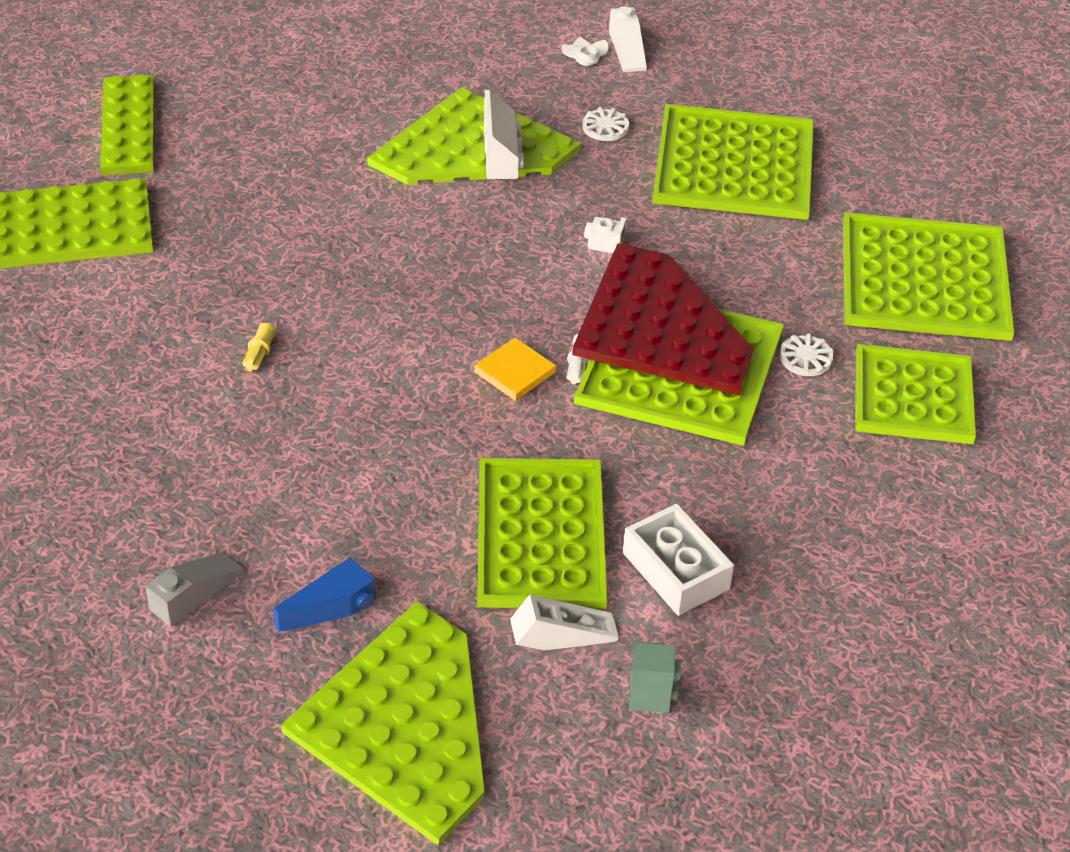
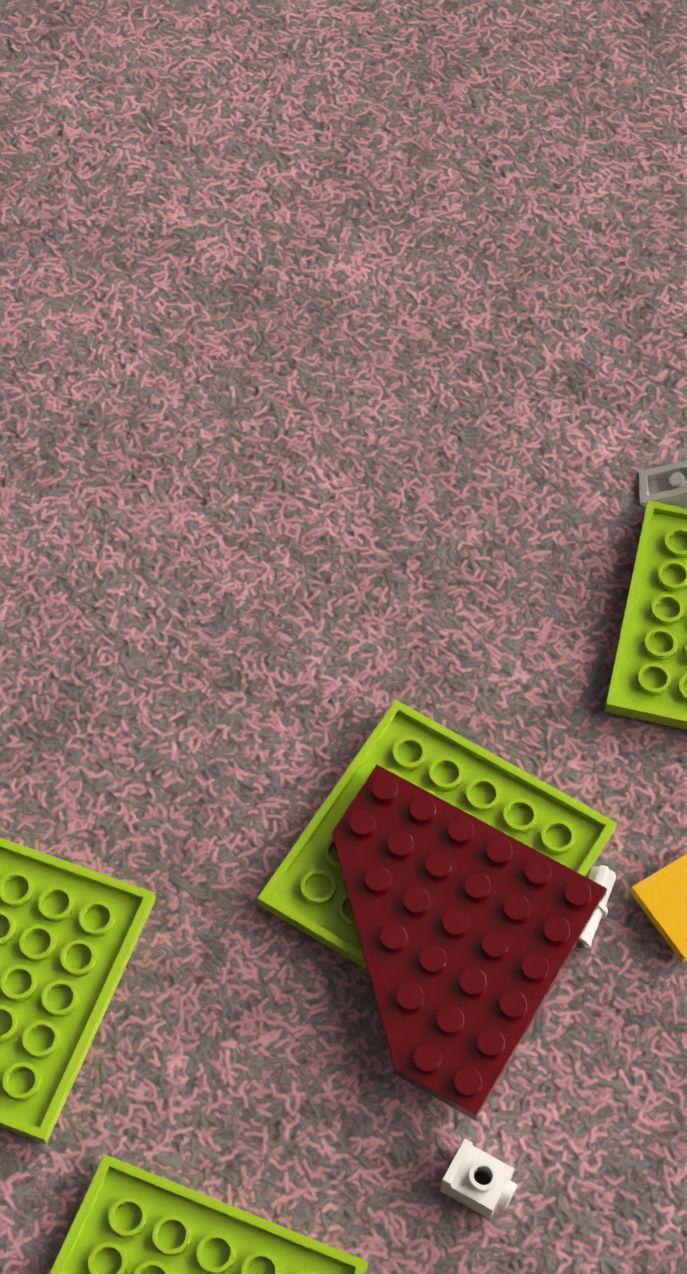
camera: 165 degrees left, 15 degrees up
(653, 677) = (623, 379): sand green brick -> none
(677, 559) = (549, 528): white brick -> none
(806, 355) = (241, 848): white wheel -> none
(914, 394) = (119, 739): lime plate -> none

